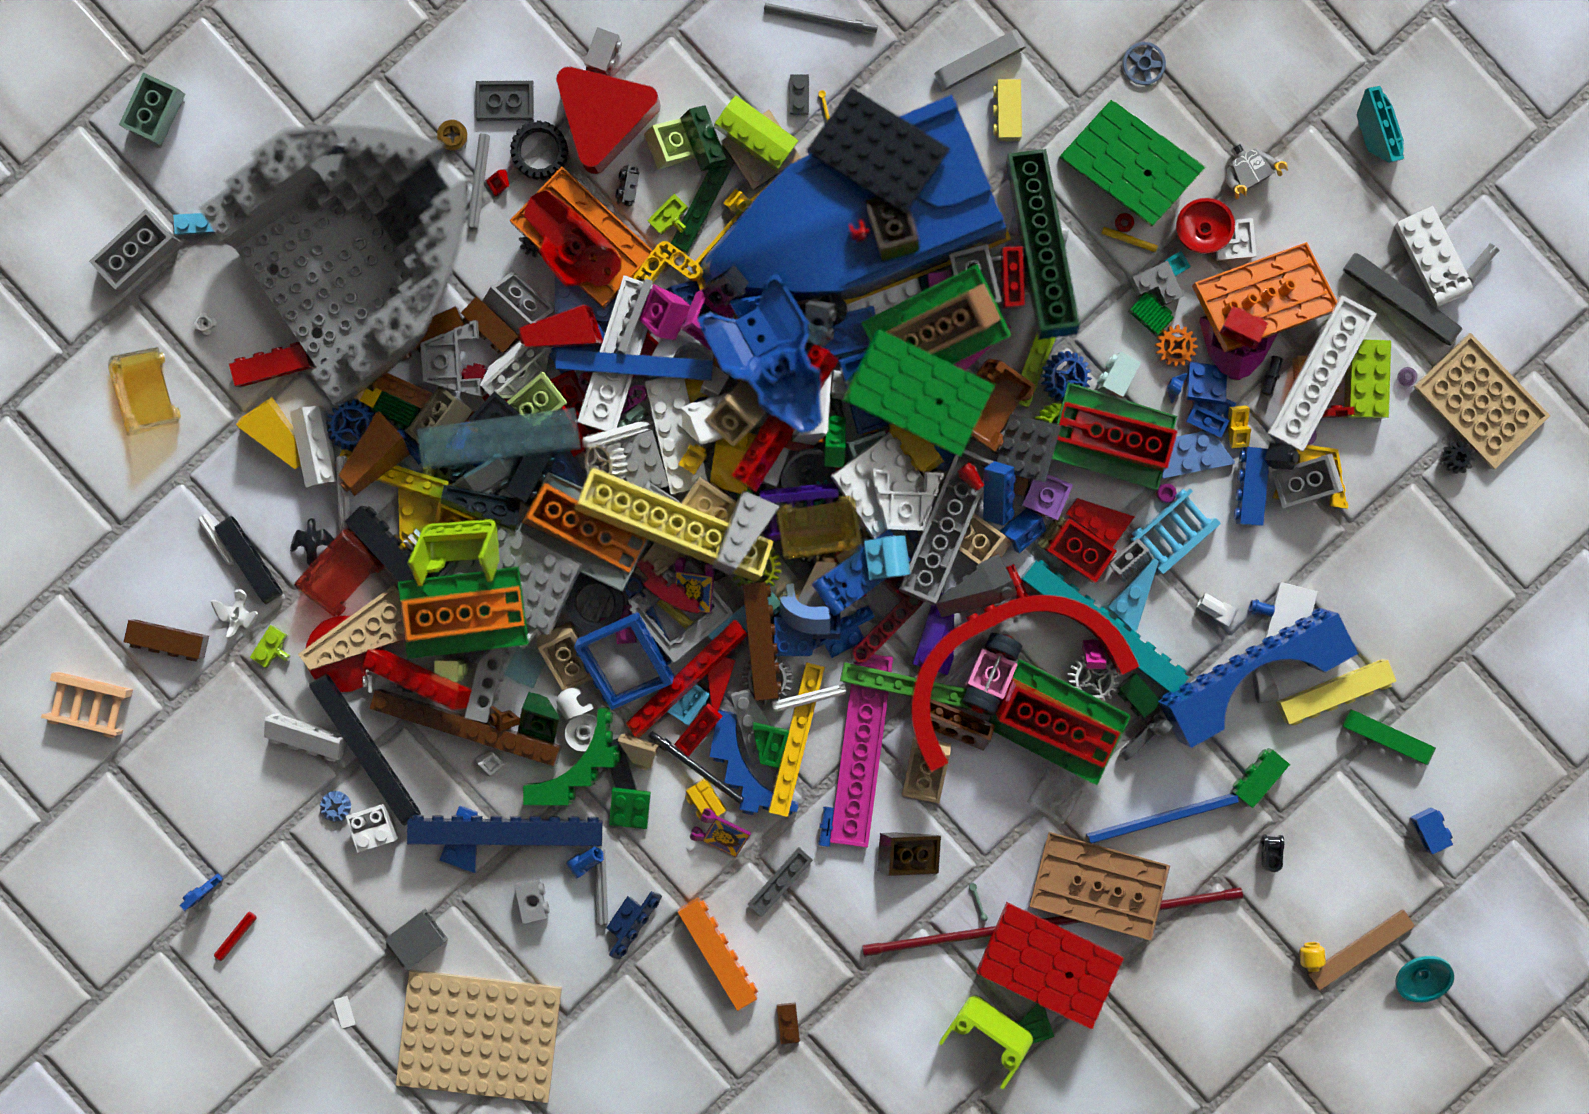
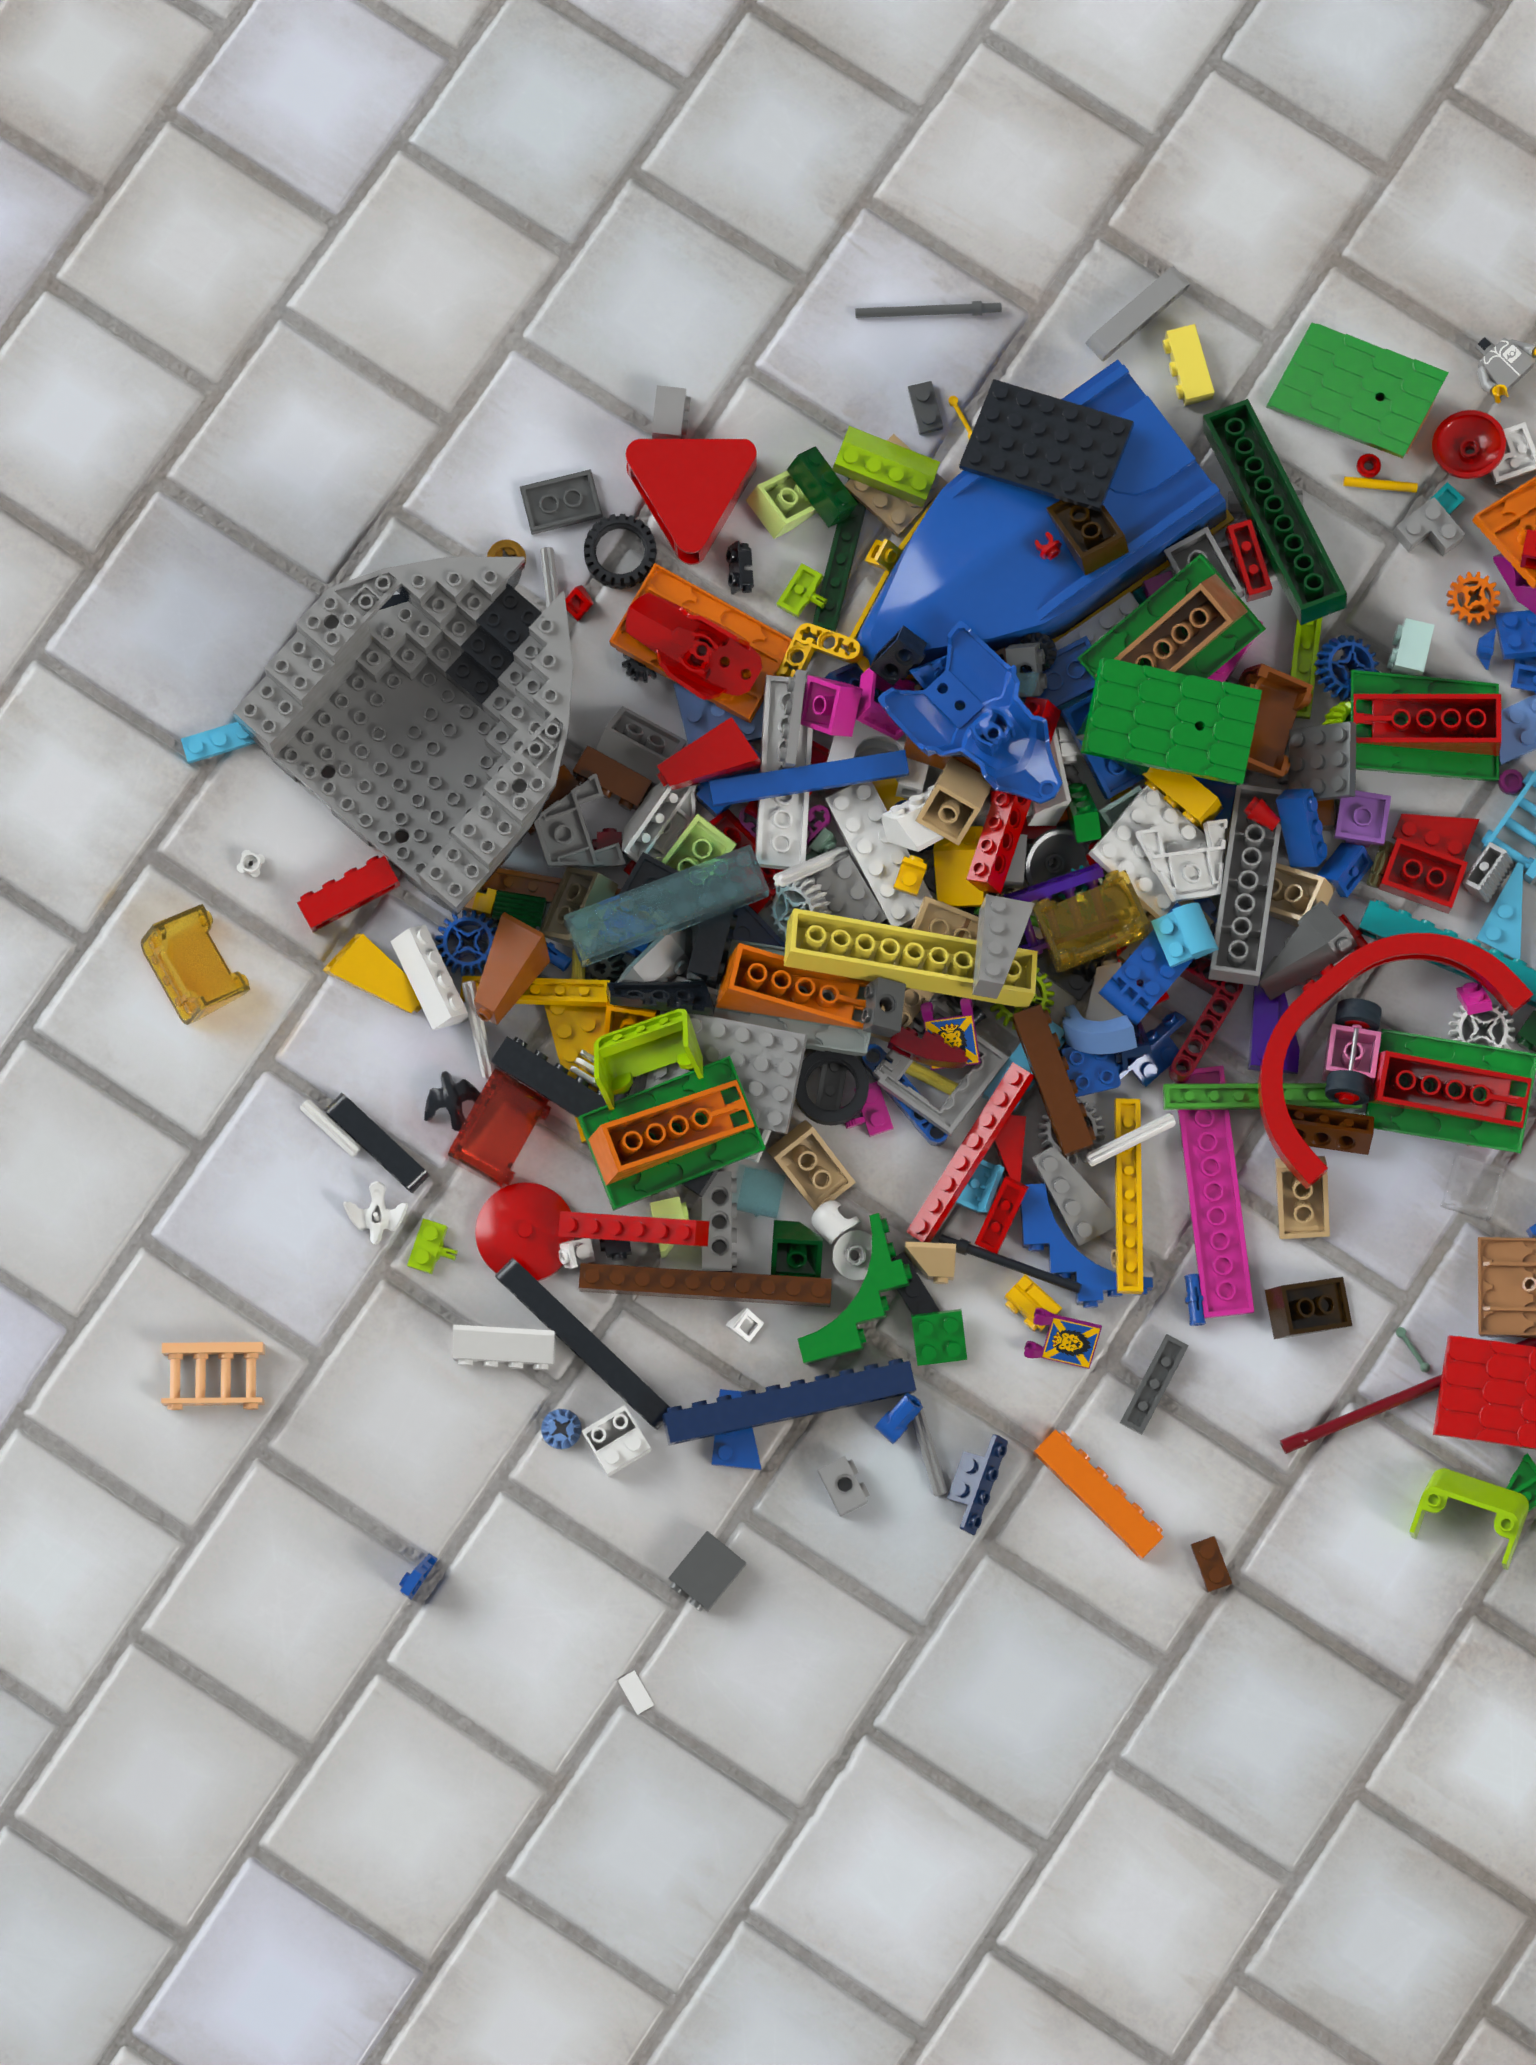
camera: 15 degrees left, 10 degrees down
(134, 251) = (144, 793): light grey brick -> none
(152, 109) = (126, 615): sand green brick -> none
(166, 639) = (296, 1267): reddish brown brick -> none
(235, 936) = (472, 1627): red axle -> none
(369, 628) = (557, 1184): tan wing -> none
(478, 1036) = (817, 1679): tan plate -> none
(503, 720) = (749, 1262): reddish brown bracket -> none
(649, 645) = (861, 1184): blue window -> none
(652, 551) = (891, 996): none -> dark grey brick
(770, 743) = (1096, 1208): green wing -> none
(1144, 63) = (1340, 270): sand blue wheel -> none
(1151, 313) = (1431, 567): green brick -> none

